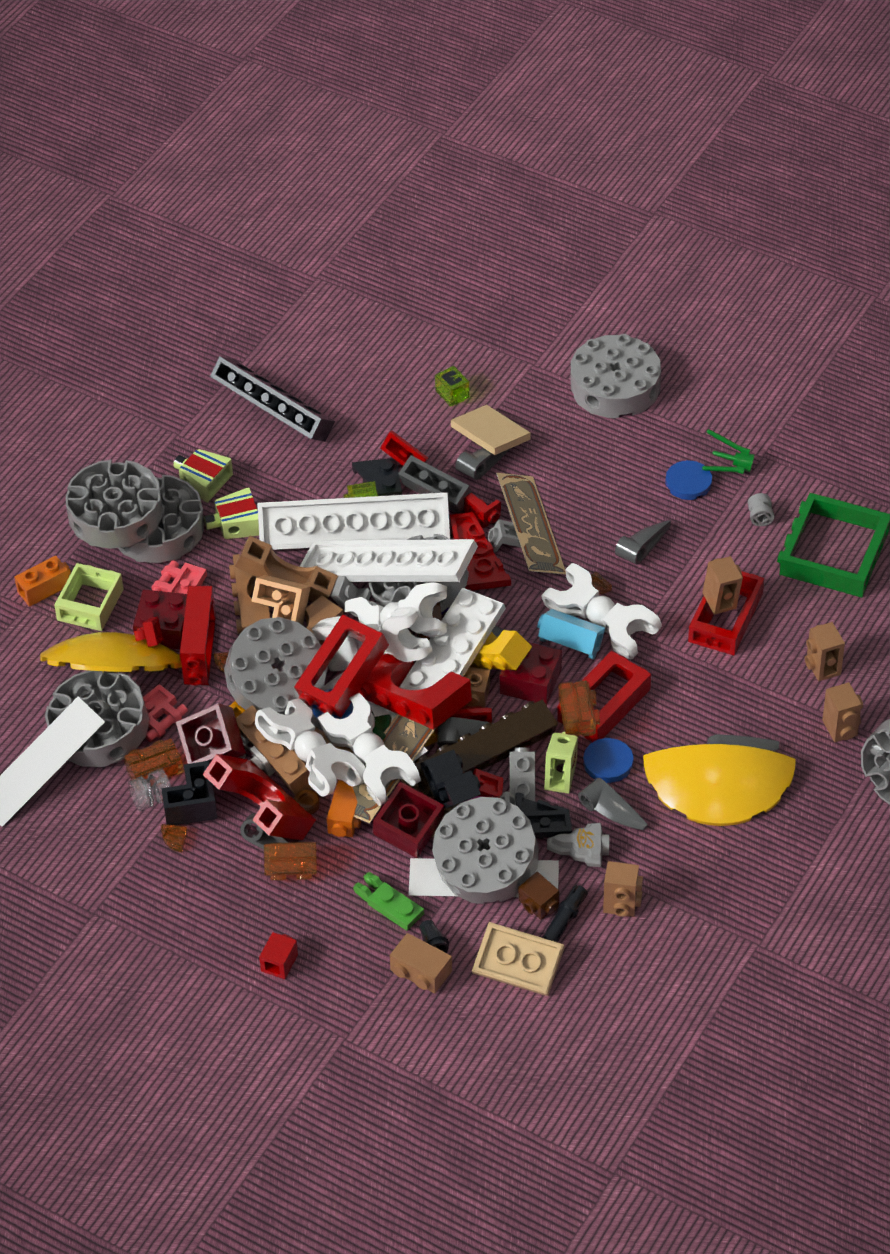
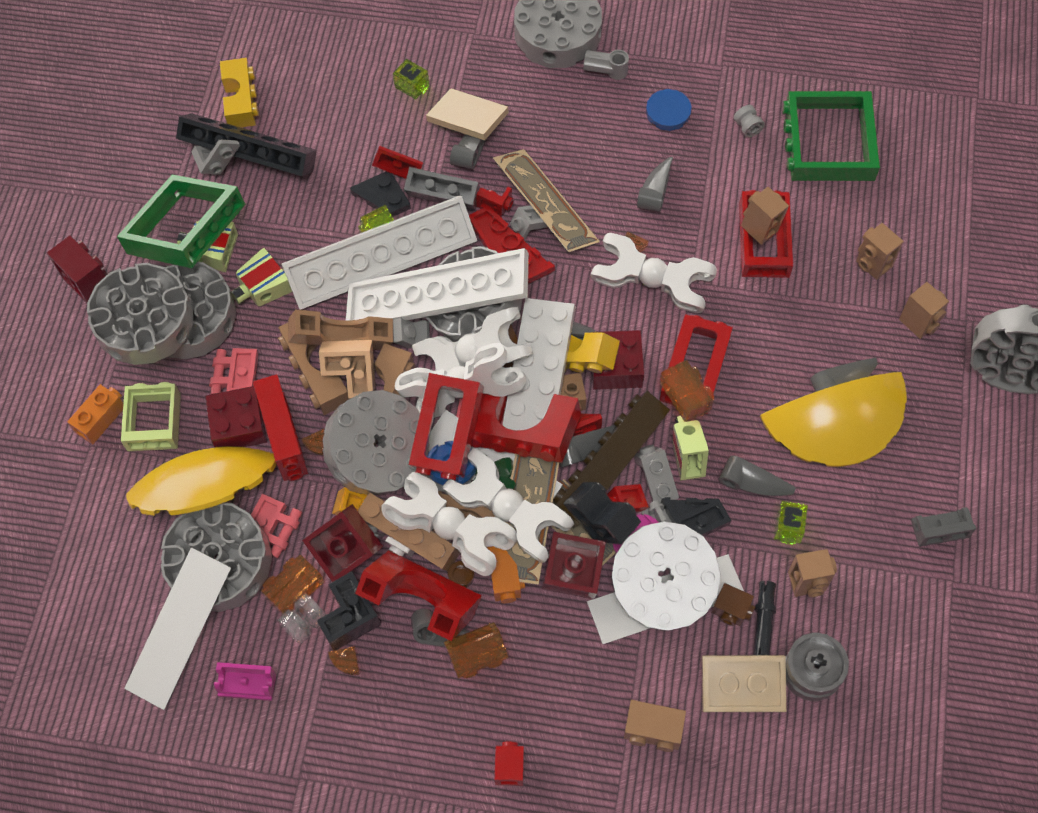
camera: 20 degrees left, 15 degrees up
(74, 451) = (77, 266): none -> dark red brick
(80, 822) = (245, 681): none -> dark pink hinge
(150, 631) = (232, 443): red tile -> none
(226, 440) = (226, 207): none -> green window
(240, 402) = (215, 160): none -> light grey bracket
(289, 345) = (238, 77): none -> yellow arch
(389, 902) = (590, 660): bright green hinge -> none
(433, 936) = (651, 689): black cone -> none
(571, 632) = (635, 304): medium azure brick -> none
(582, 844) = (747, 530): light grey rock -> none
(588, 964) = (827, 656): none -> flat silver wheel
(608, 760) = (727, 429): blue tile -> none
(627, 846) = (791, 522): none -> clear neon green brick
(653, 424) = (612, 63): none -> light grey piece
(741, 460) = (710, 75): green plant -> none
(769, 898) = (943, 527): none -> dark grey hinge

